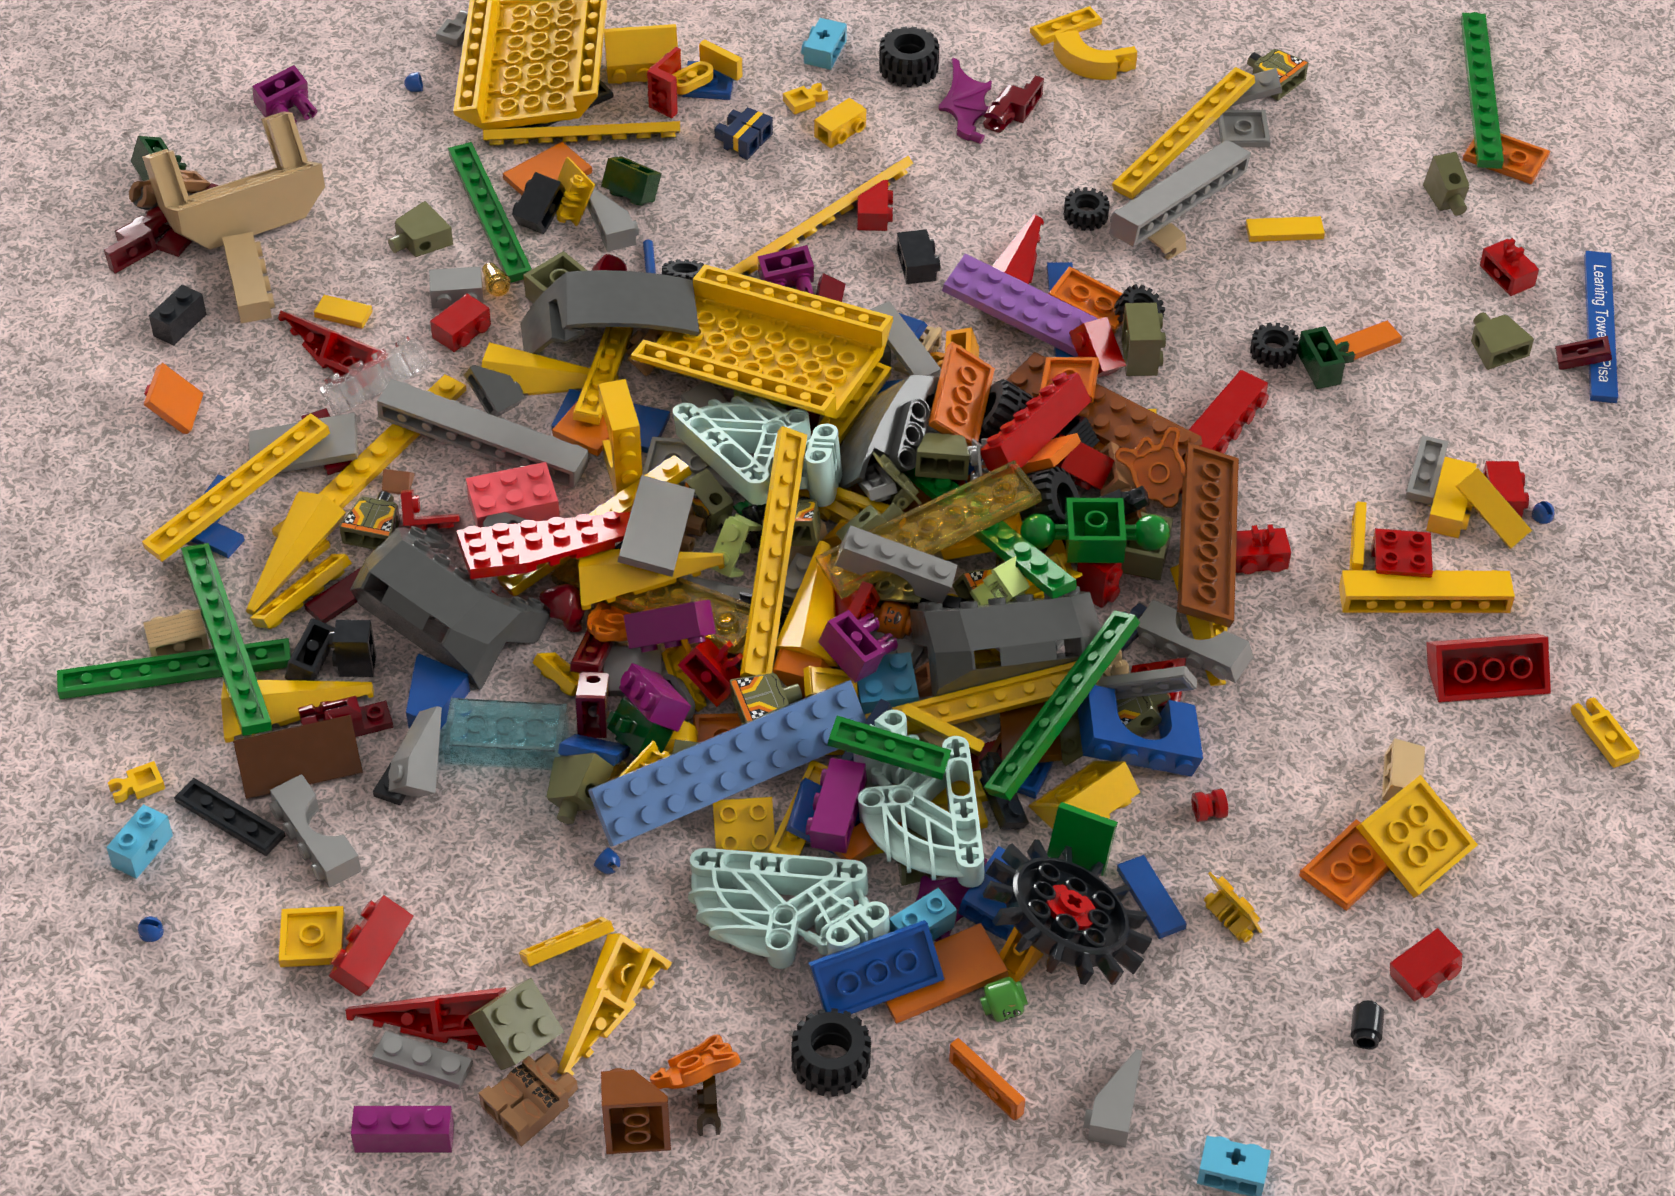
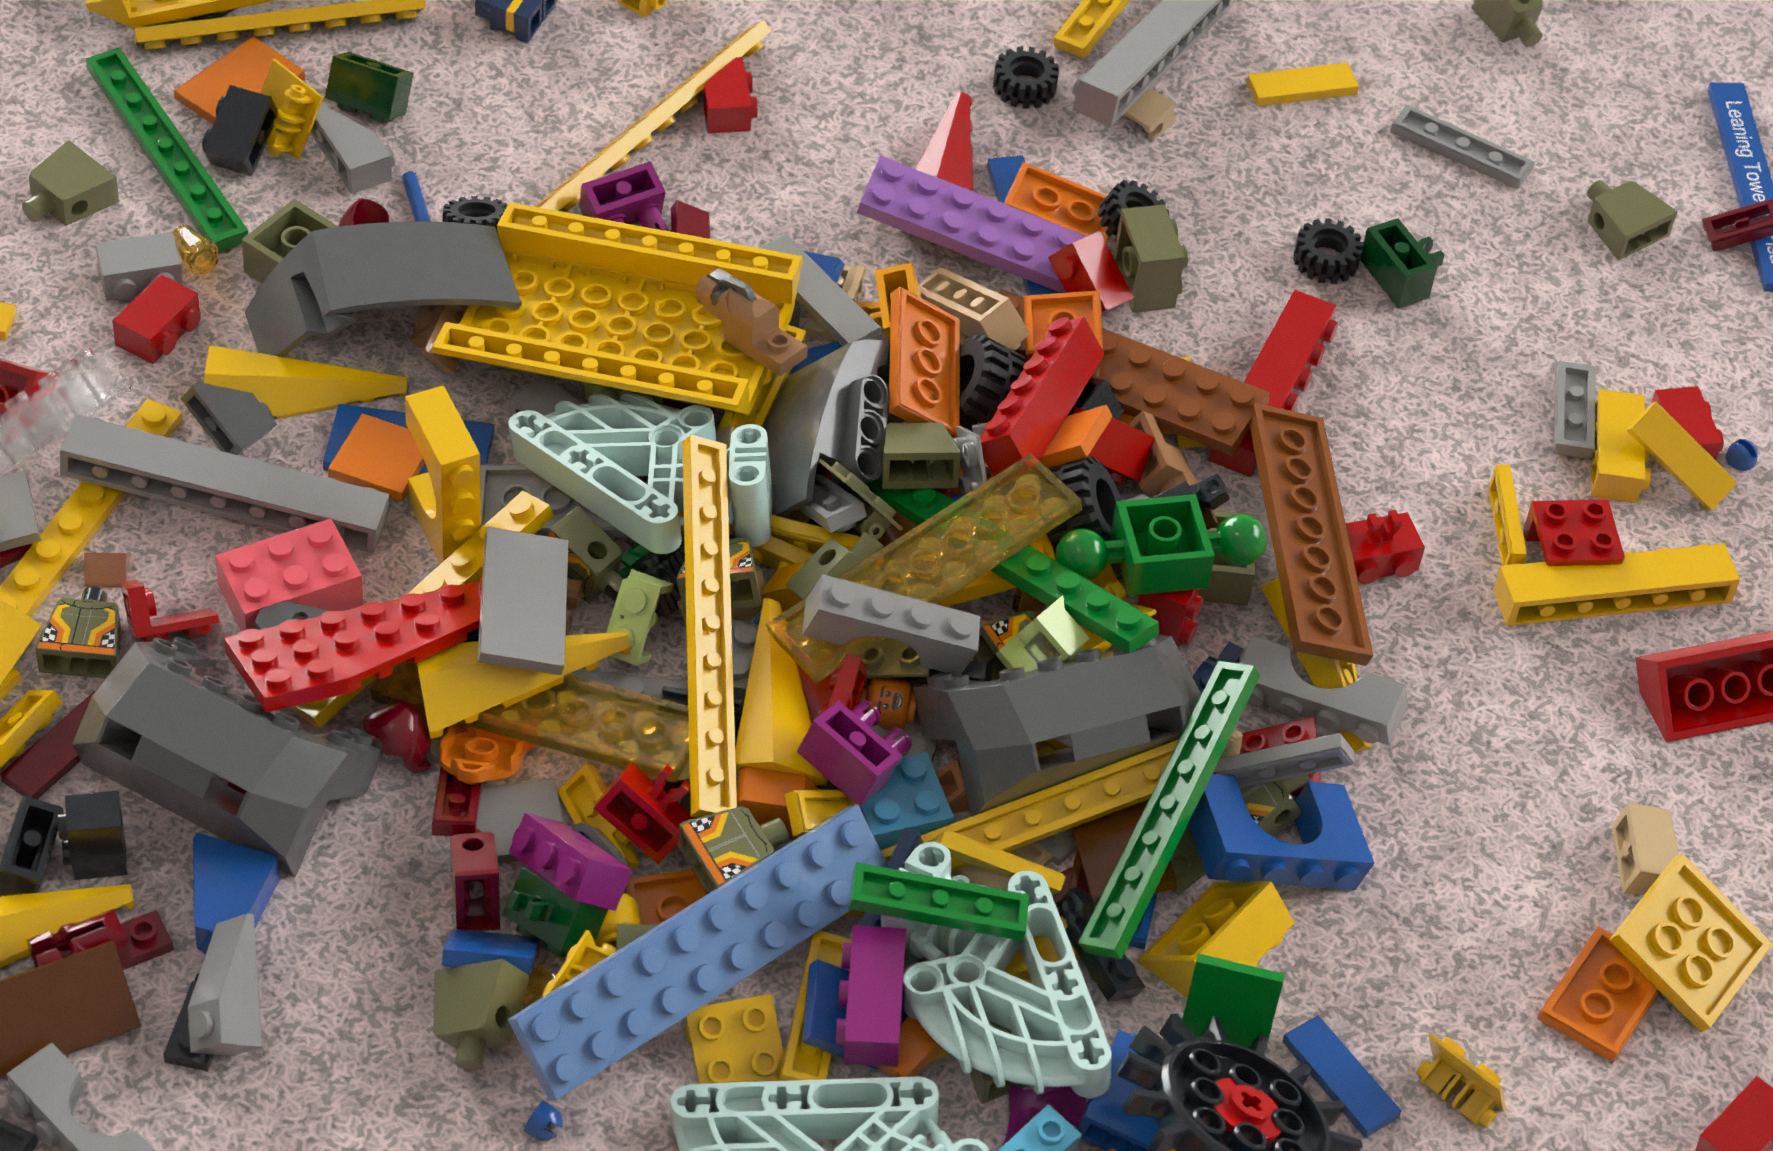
camera: 15 degrees left, 0 degrees up
(504, 733) = (350, 941): clear light blue brick -> none
(558, 670) = (414, 836): yellow plate -> none
(603, 370) = (386, 380): yellow tile -> none
(670, 625) = (572, 750): magenta brick -> none
(847, 357) = (749, 321): none -> medium nougat plate
(917, 256) = (804, 165): black brick -> none
(1010, 363) = (976, 306): none -> tan slope
(1156, 467) = (1216, 441): orange tile -> none
(1209, 805) = (1394, 929): red wheel -> none
(1371, 339) = (1457, 229): orange tile -> none
(1391, 281) = (1462, 146): none -> light grey tile
(1509, 266) = (1617, 112): red brick -> none

